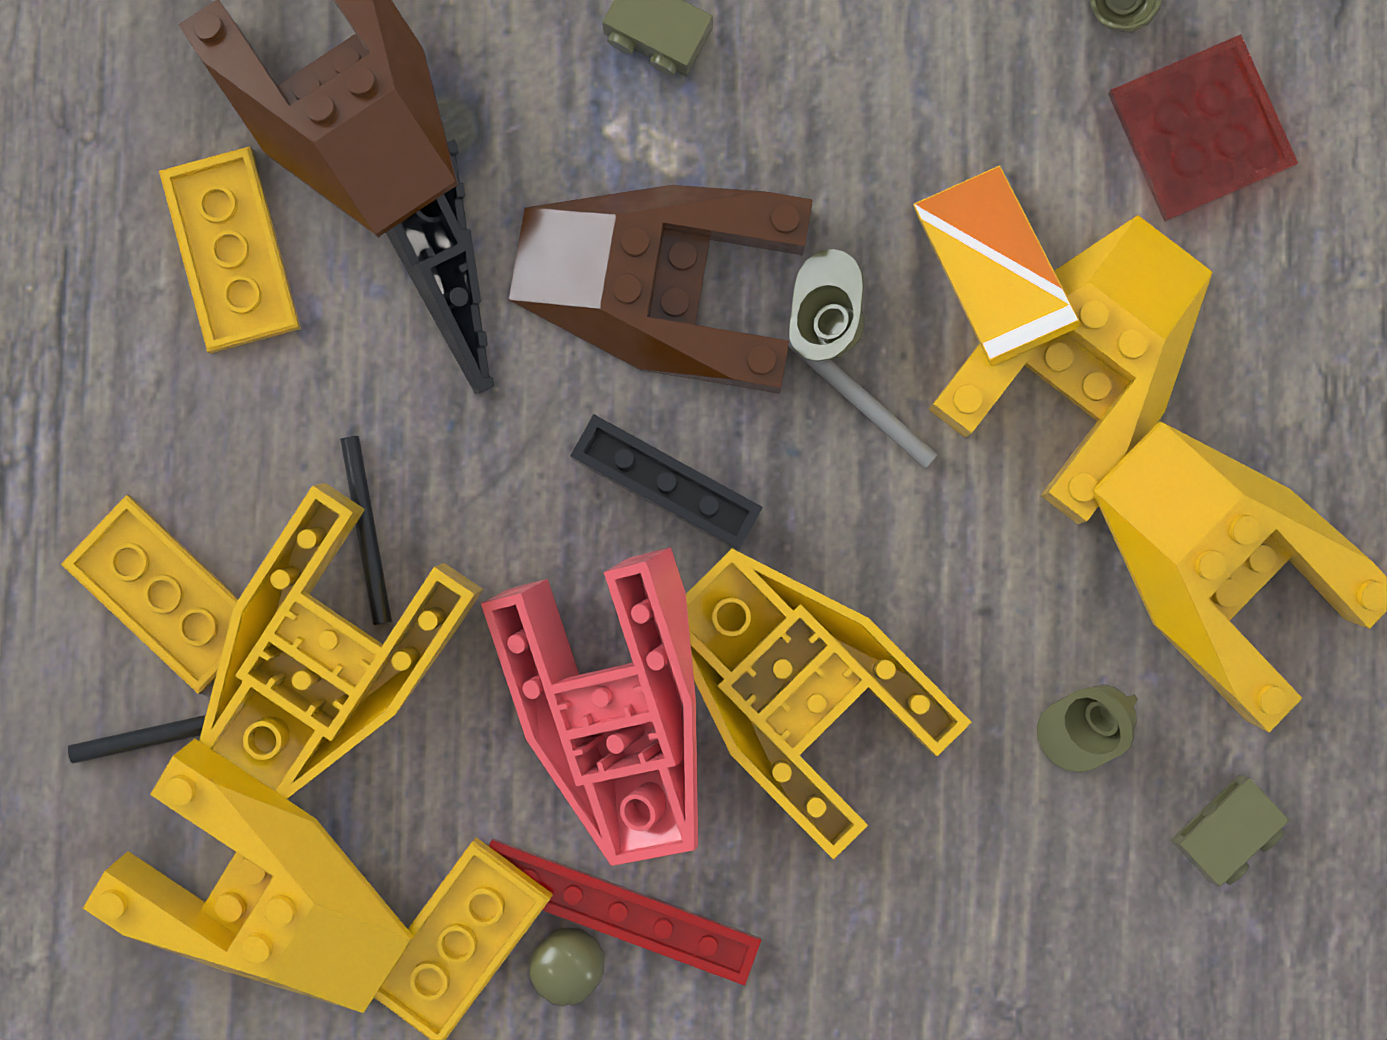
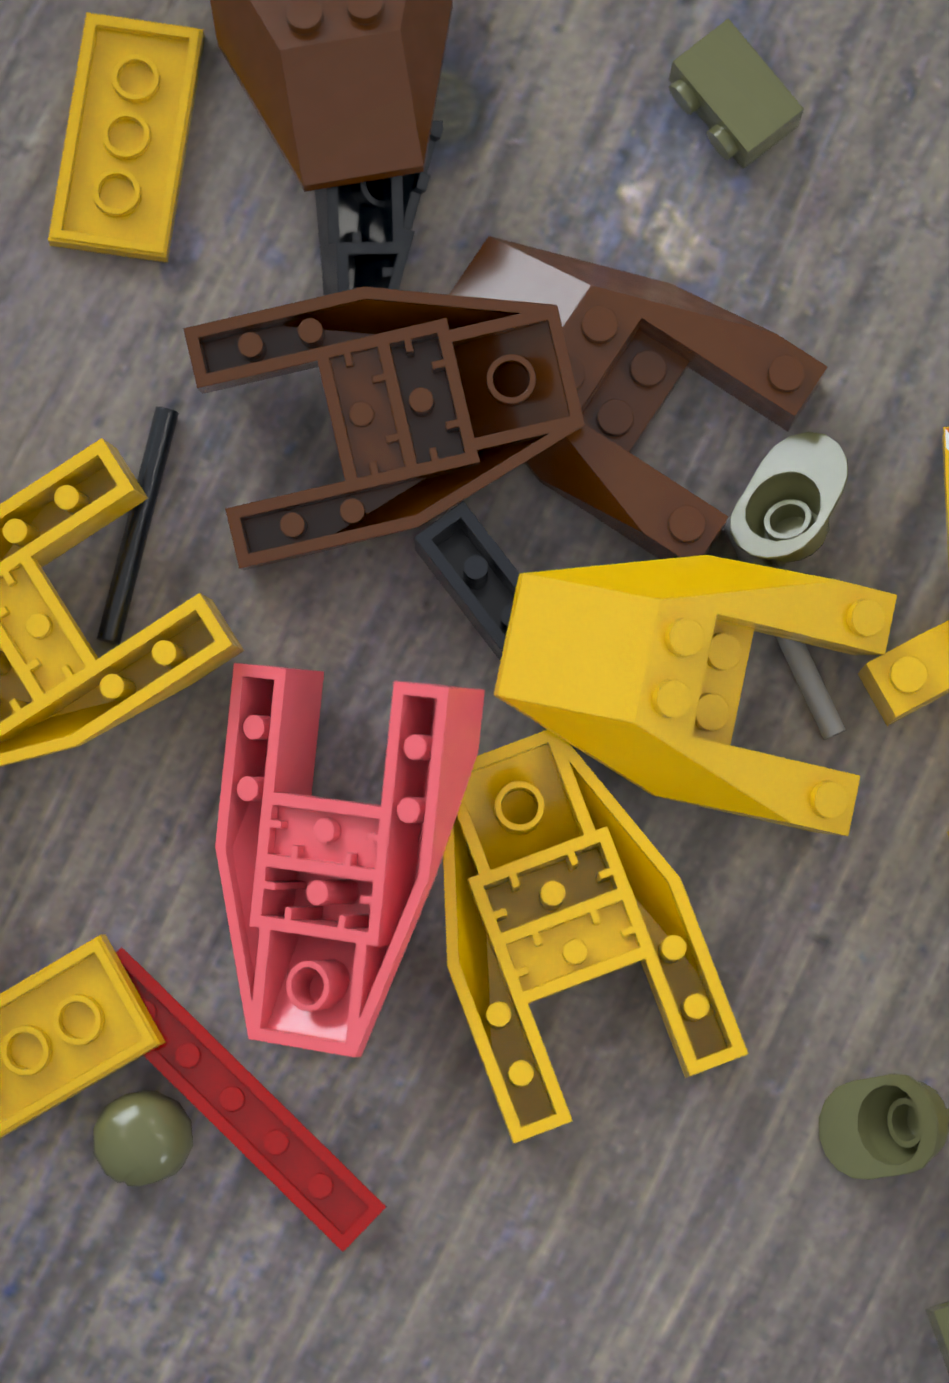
camera: 20 degrees right, 5 degrees down
(530, 353) = (421, 400): none -> reddish brown wedge
(782, 476) = (652, 668): none -> yellow wedge

